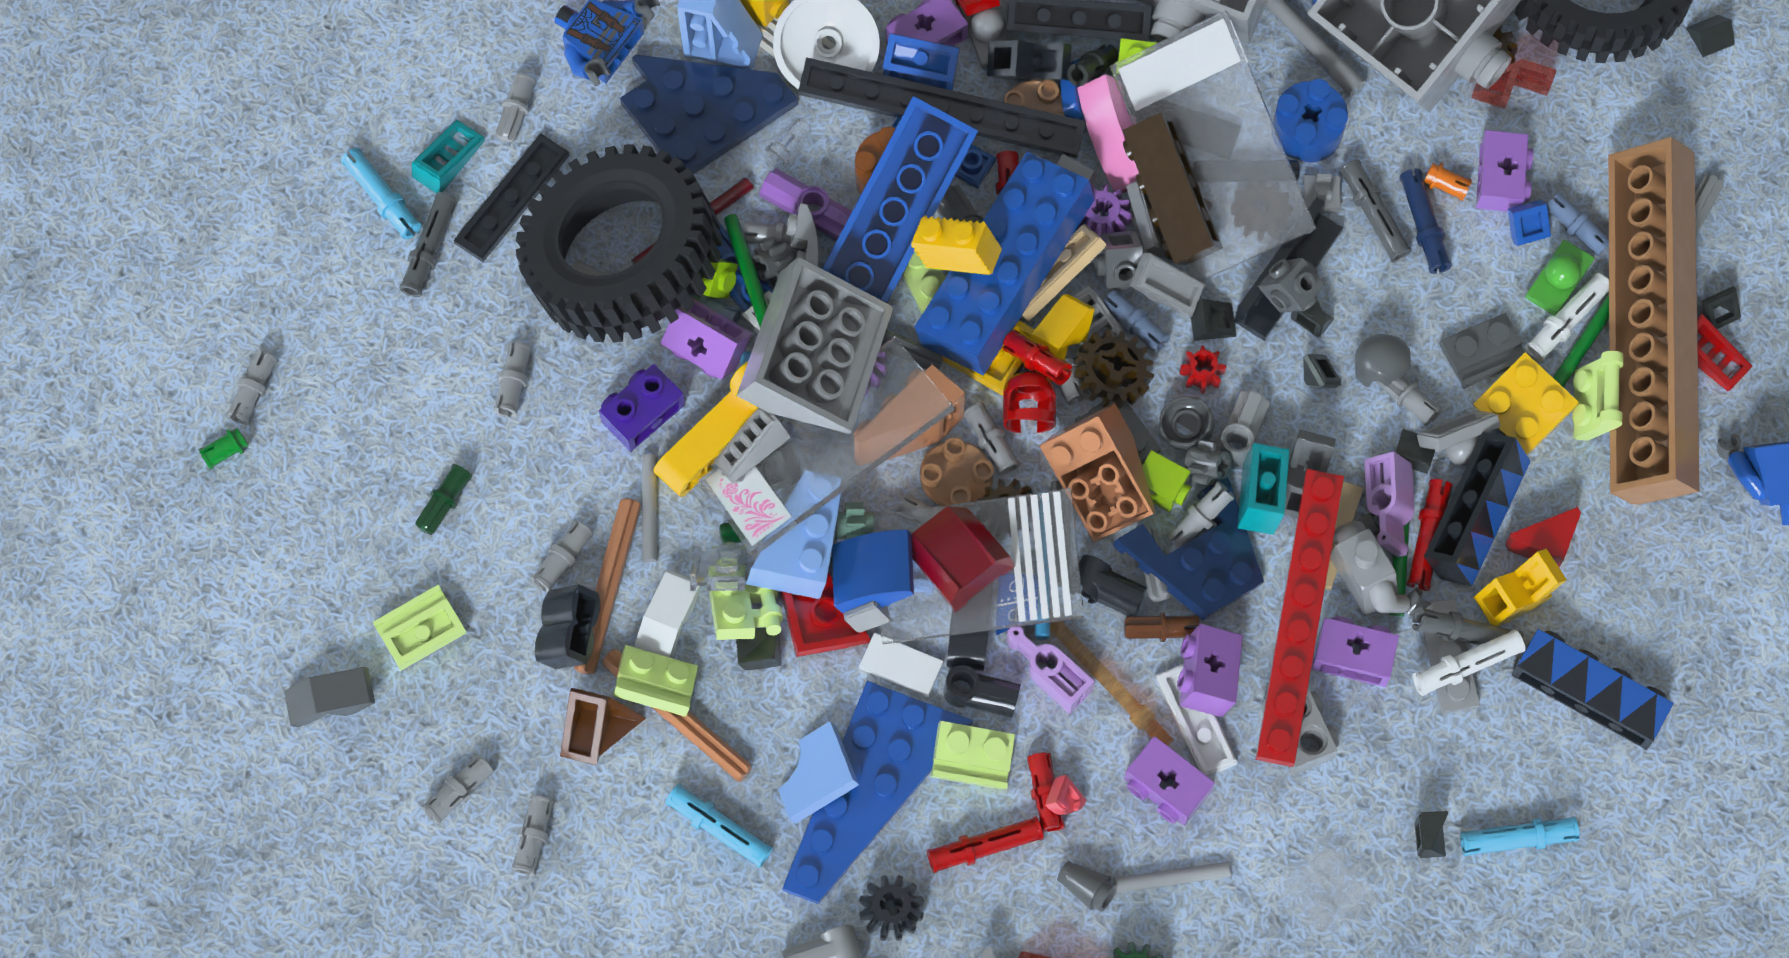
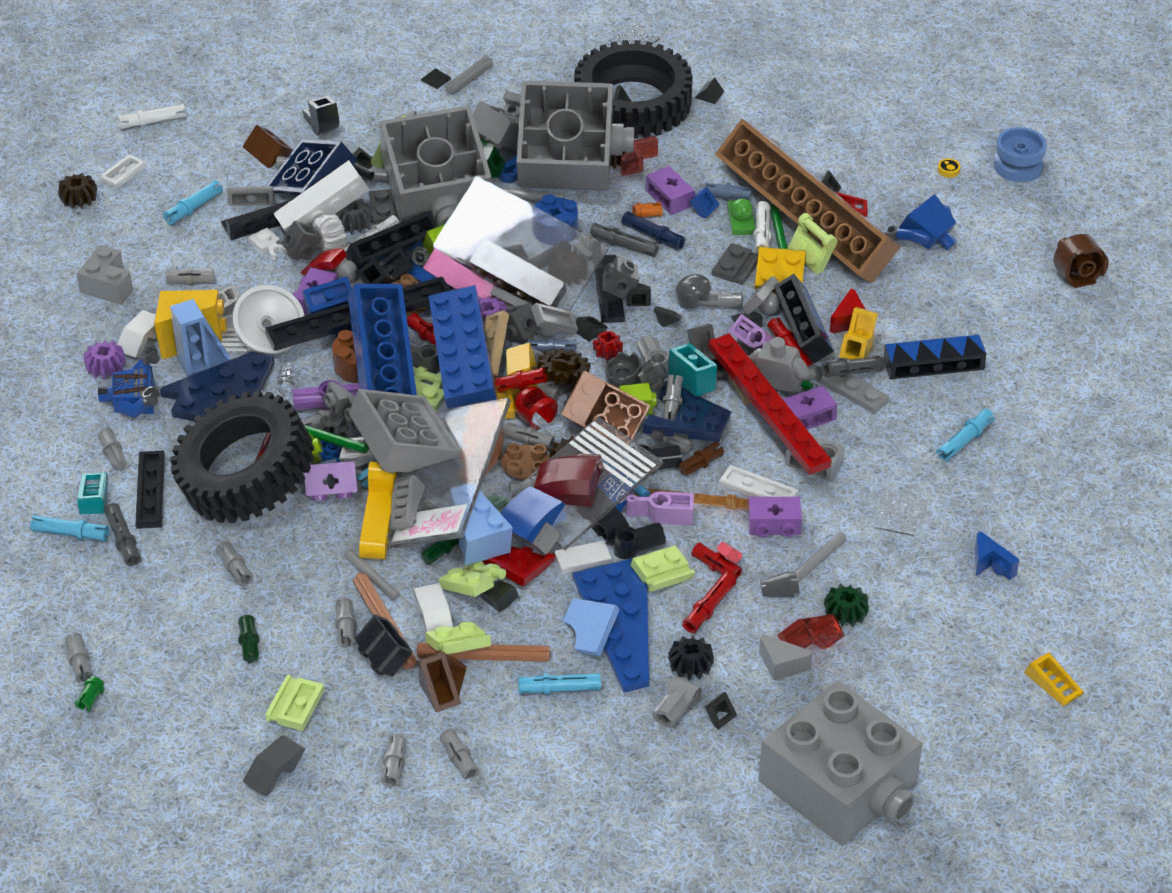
camera: 40 degrees left, 25 degrees down
(641, 406) = (322, 530): dark purple brick -> none
(721, 568) = (443, 565): clear plate -> none
(956, 245) = (435, 343): yellow brick -> none
(1210, 670) = (746, 456): medium lavender brick -> none
(1430, 834) = (922, 458): pearl dark grey slope -> none
(1455, 668) = (864, 382): white pin -> none

